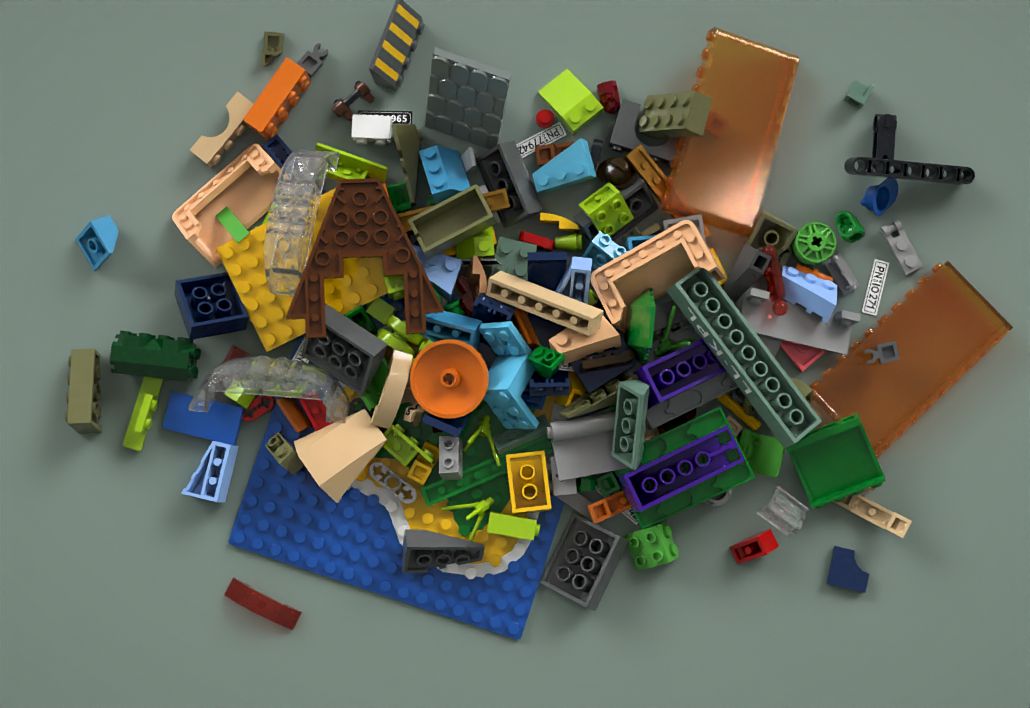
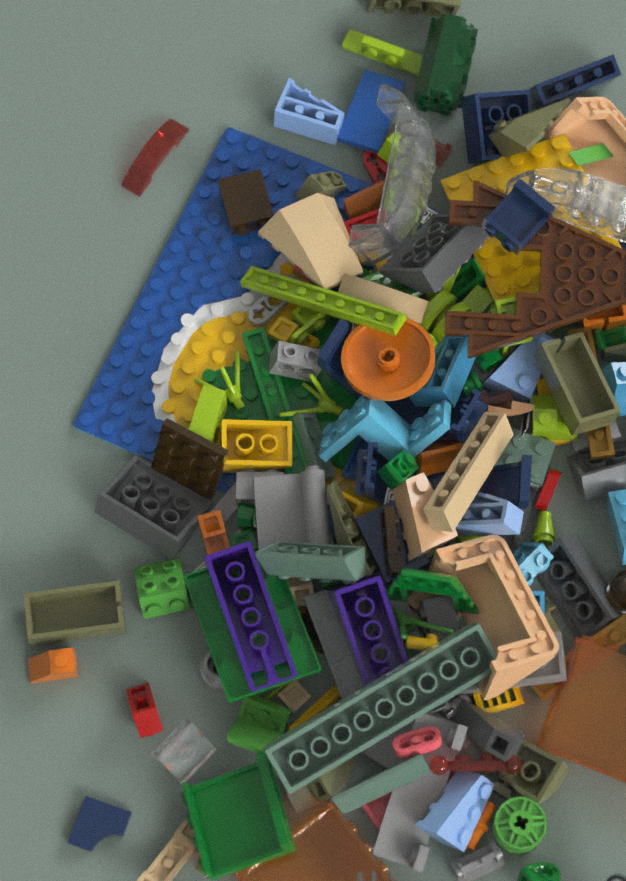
camera: 90 degrees right, 15 degrees down
(98, 240) = (584, 20): dark azure slope -> none
(161, 243) = (575, 81): none -> dark blue brick
(219, 282) = (527, 129): none -> olive wedge
(305, 517) = (245, 202): none -> dark brown brick
(319, 279) = (518, 217): none -> dark blue panel
(397, 439) = (323, 300): none -> lime tile
(430, 549) = (190, 328): dark grey wedge -> none
(548, 536) = (189, 459): none -> dark brown plate
(565, 225) = (567, 521): yellow slope -> none
(607, 209) = (578, 571): lime bracket -> none
(684, 613) = (74, 613): none -> olive piece
(687, 328) = (421, 643): none -> yellow arm
(727, 625) = (53, 665): none -> orange slope
(765, 326) = (417, 742): none -> coral plate
(796, 351) = (381, 784): none -> sand green slope

